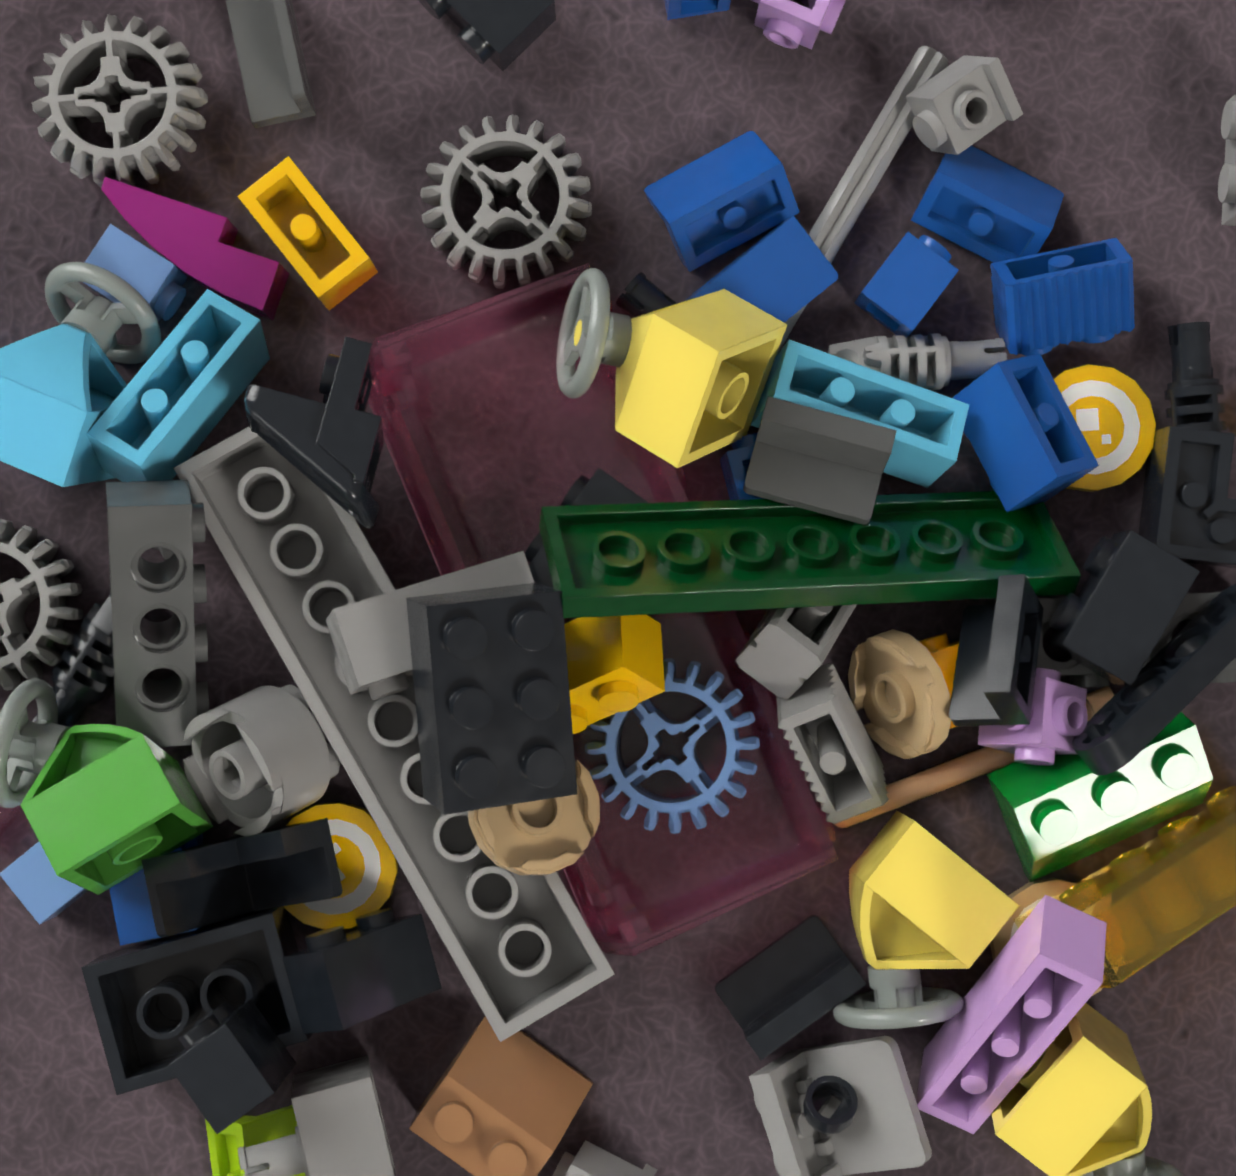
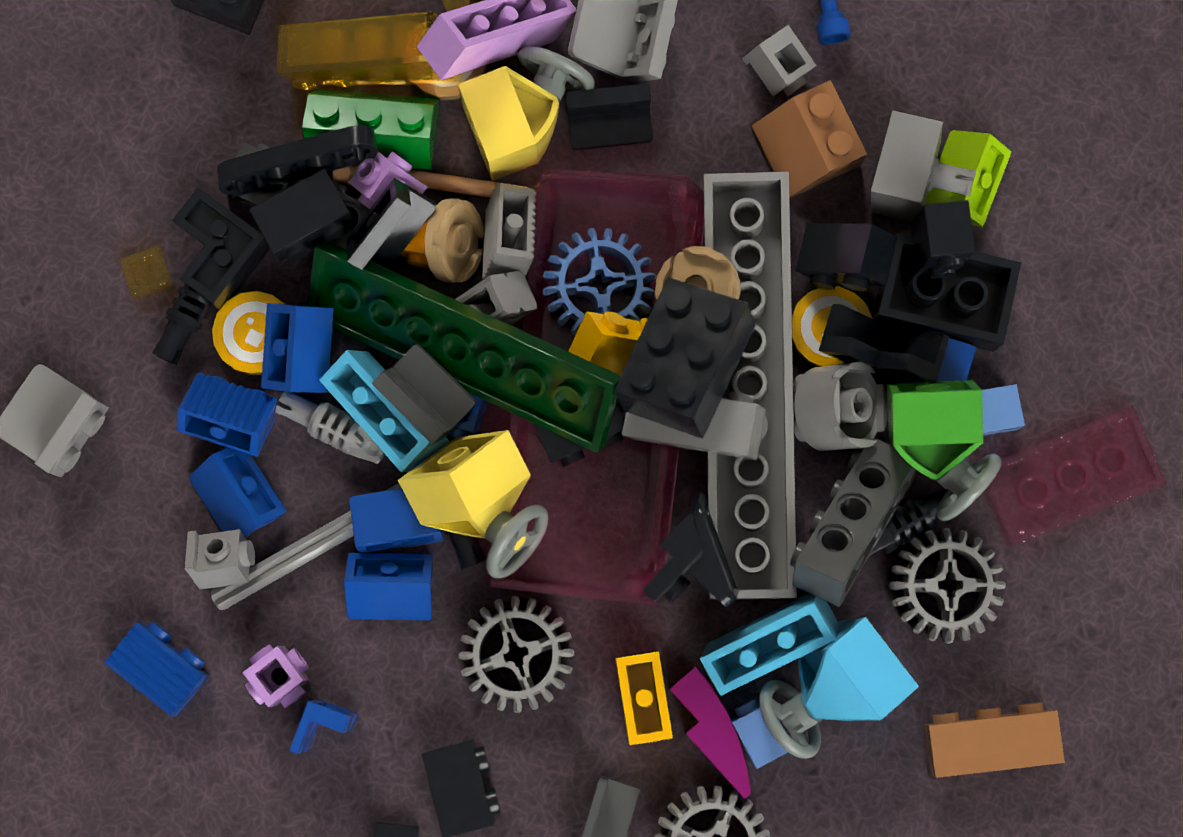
camera: 150 degrees left, 5 degrees down
(819, 1095) = (627, 47): black hinge -> none
(907, 283) = (311, 473): blue brick -> none

